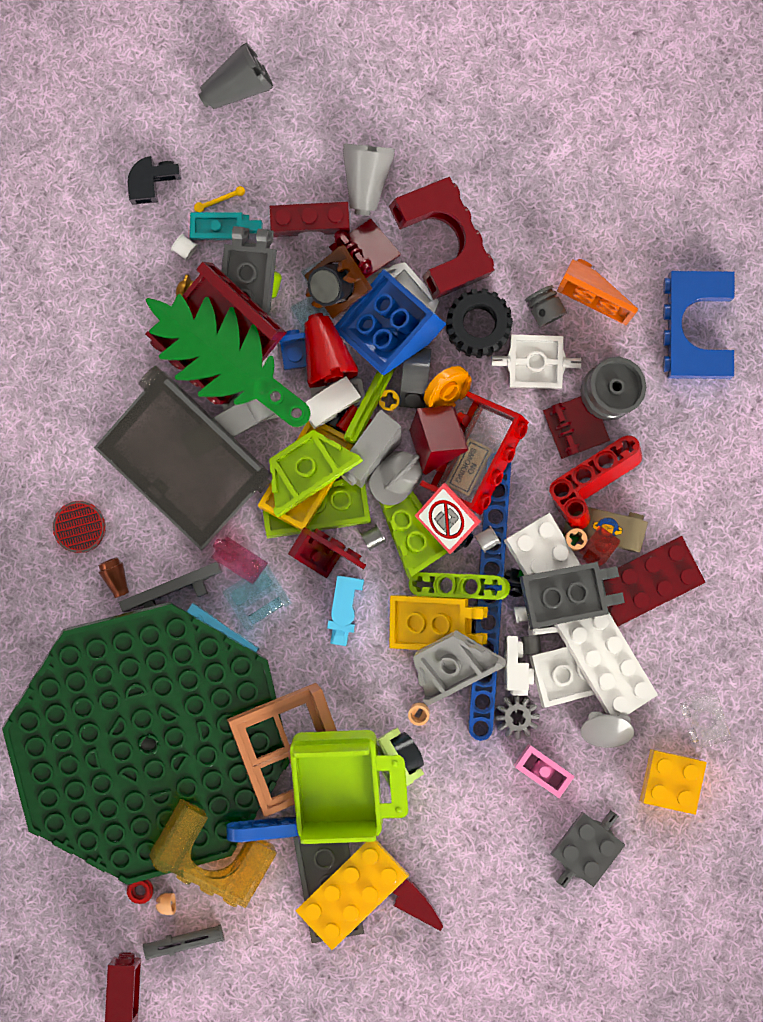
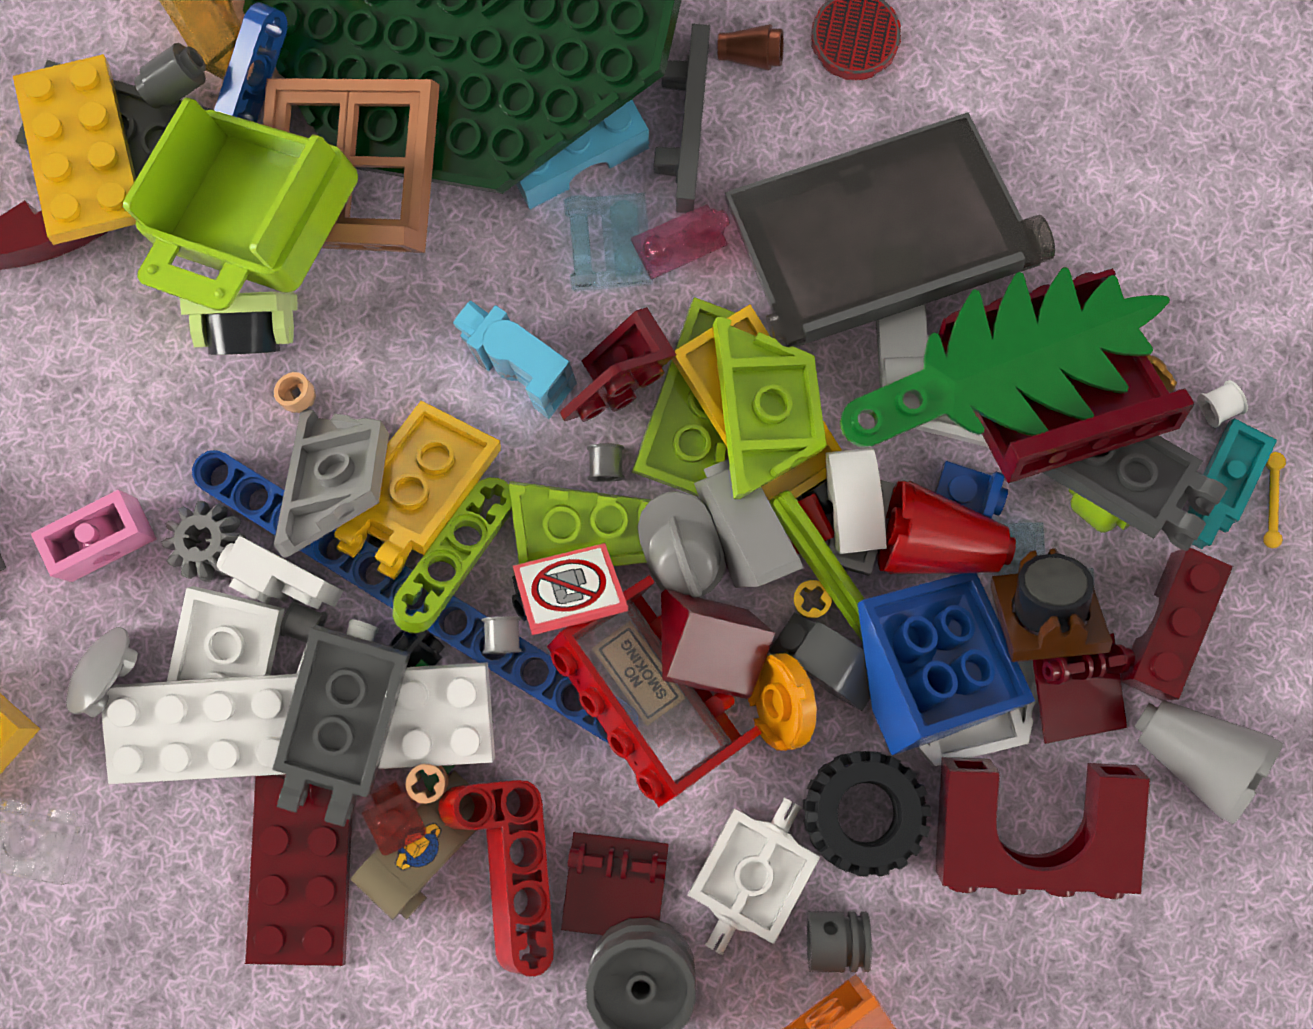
camera: 120 degrees right, 5 degrees down
(290, 866) = (170, 76): none -> dark grey brick

